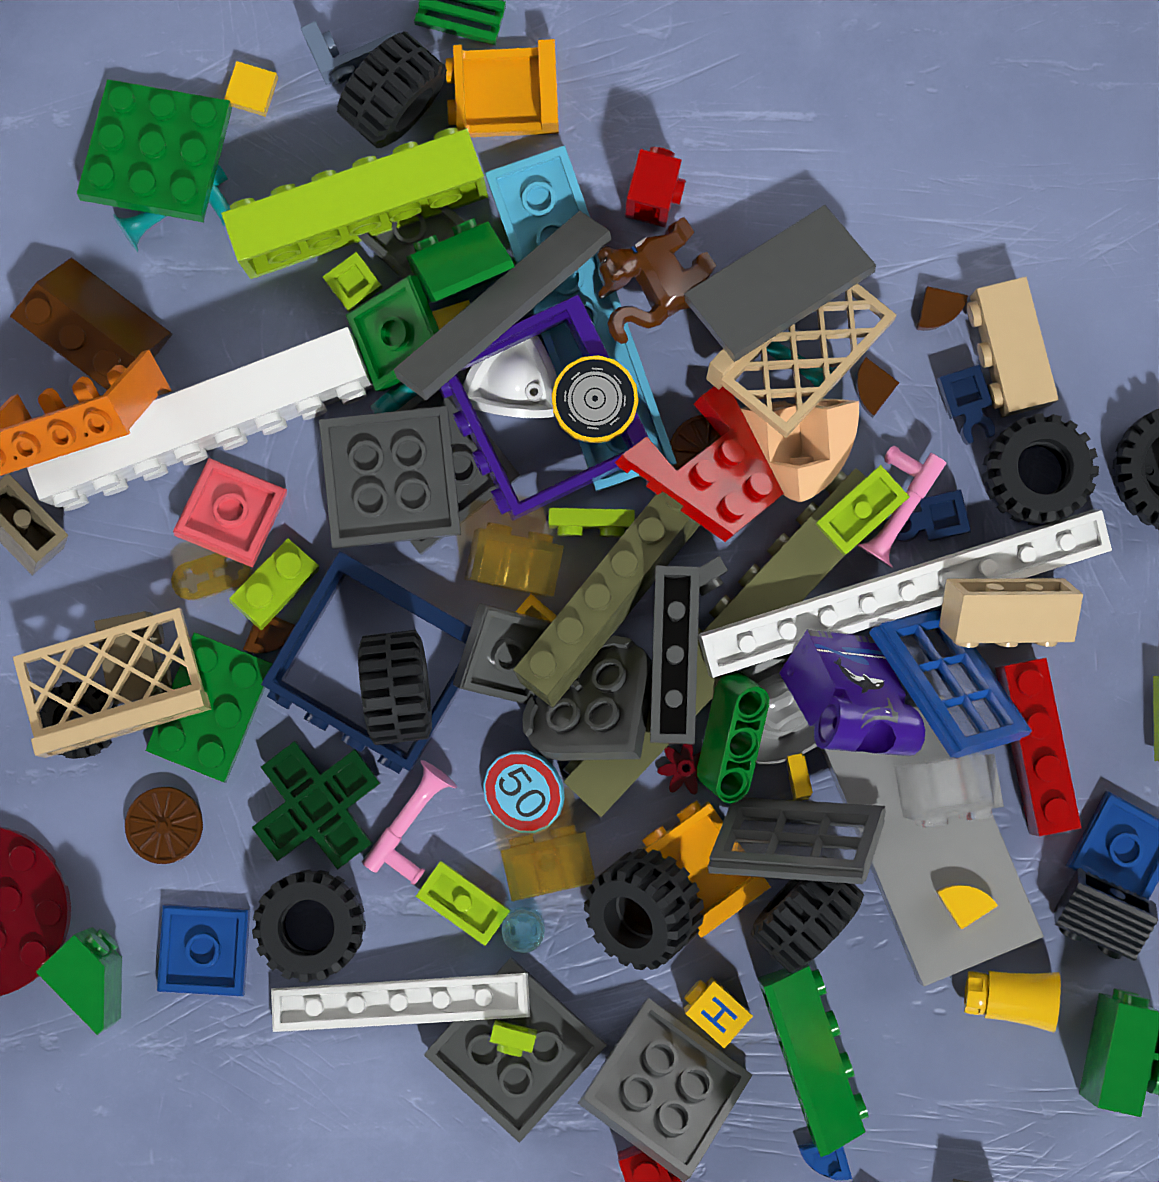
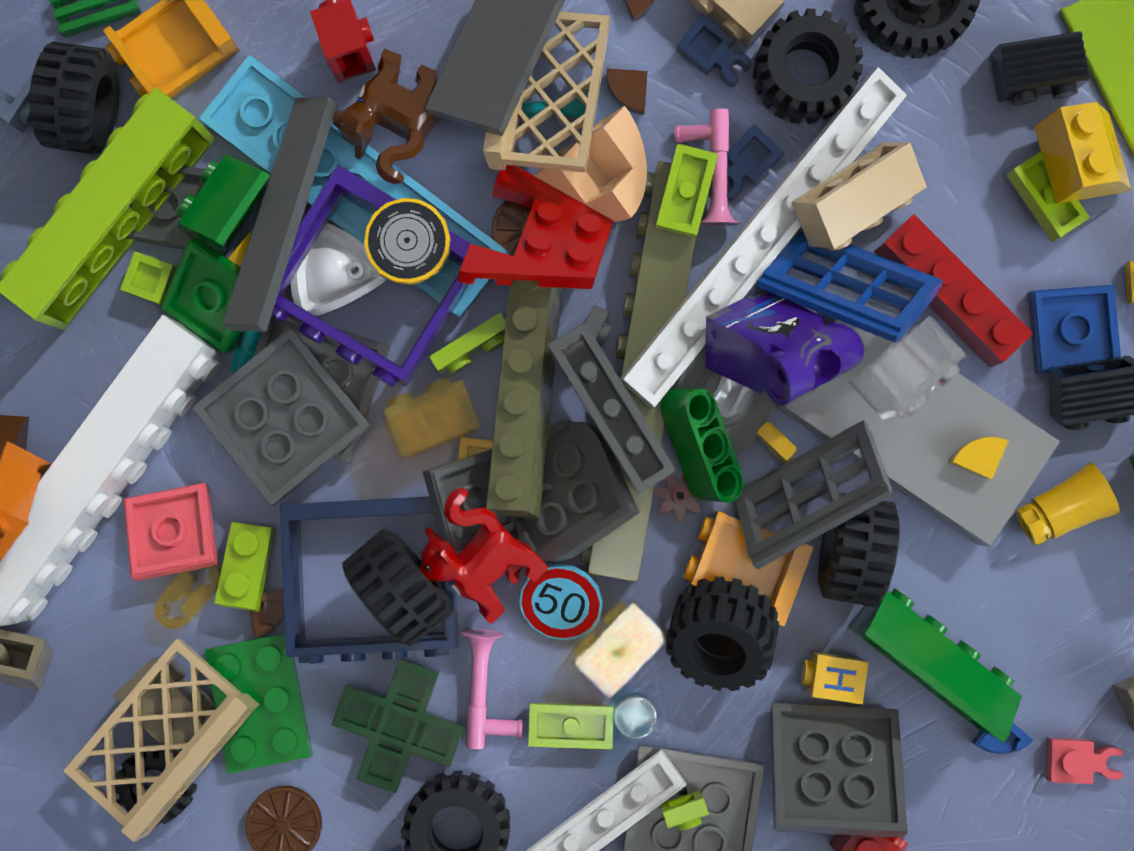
camera: 35 degrees left, 0 degrees up
(479, 712) = (482, 561): none -> red animal

